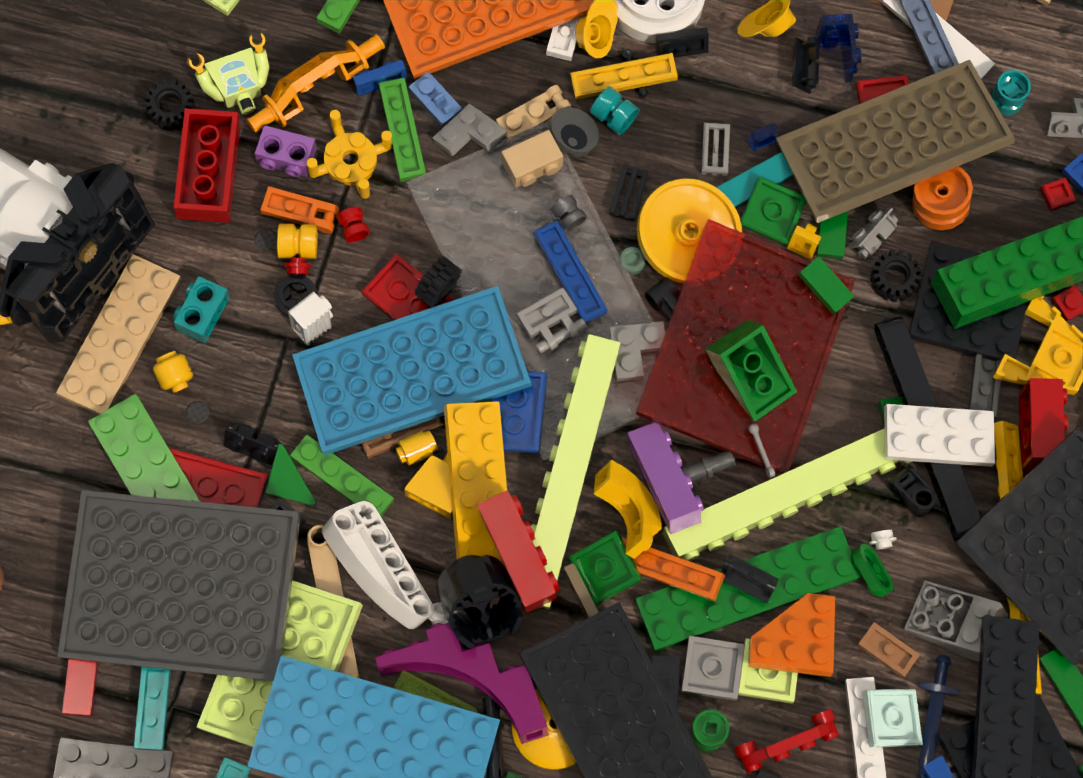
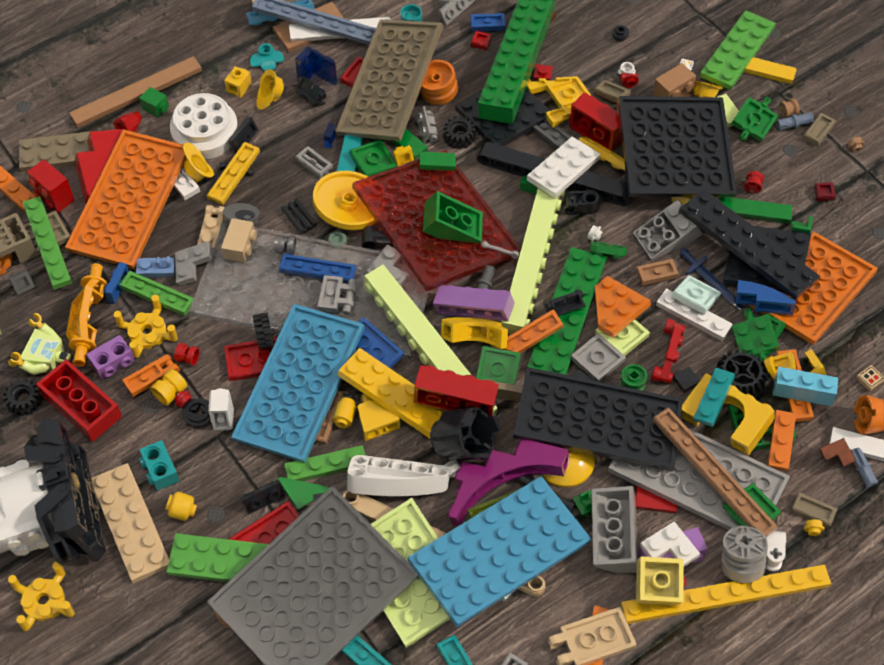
camera: 45 degrees left, 15 degrees down
(614, 110) = (242, 188): teal wheel -> none

